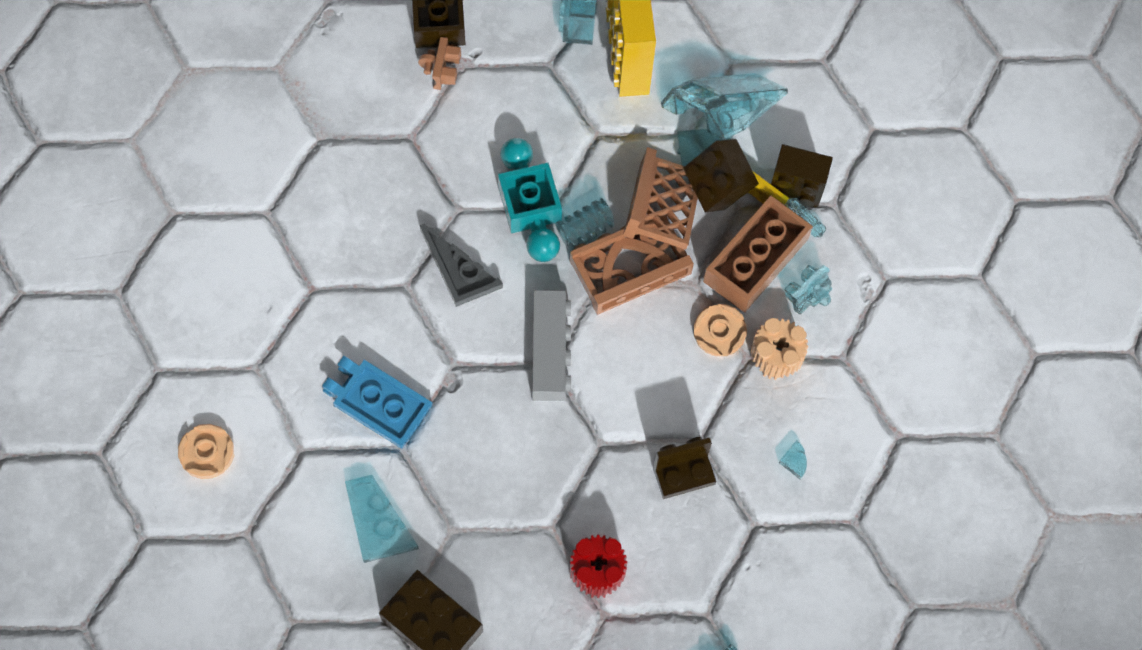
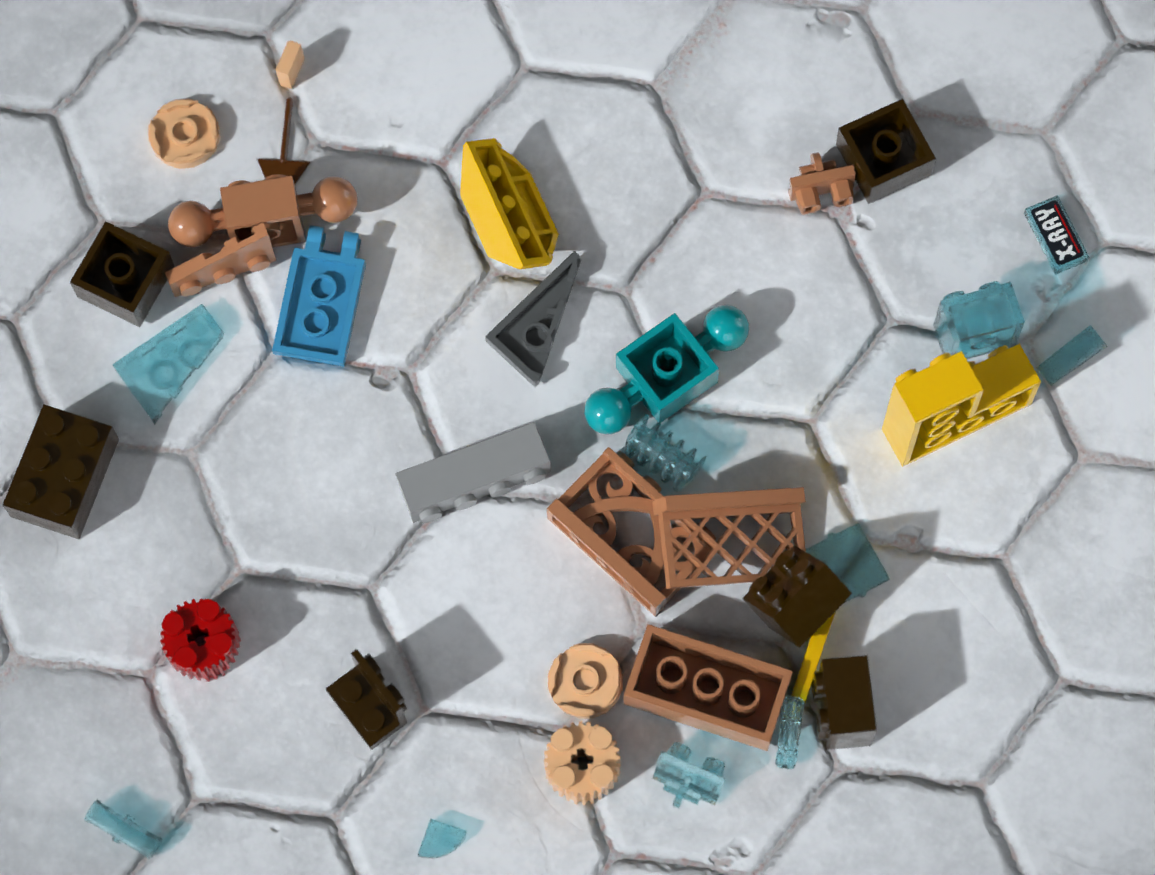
camera: 75 degrees right, 5 degrees up
(191, 358) = (290, 64): none -> light nougat tile
(268, 398) = (283, 166): none -> reddish brown piece
(300, 412) = (264, 201): none -> nougat brick
(300, 525) = (122, 274): none -> dark brown brick
(322, 481) = (233, 259): none -> nougat wing
(371, 256) = (506, 206): none -> yellow wedge
(728, 101) = (917, 568): clear light blue wedge -> none

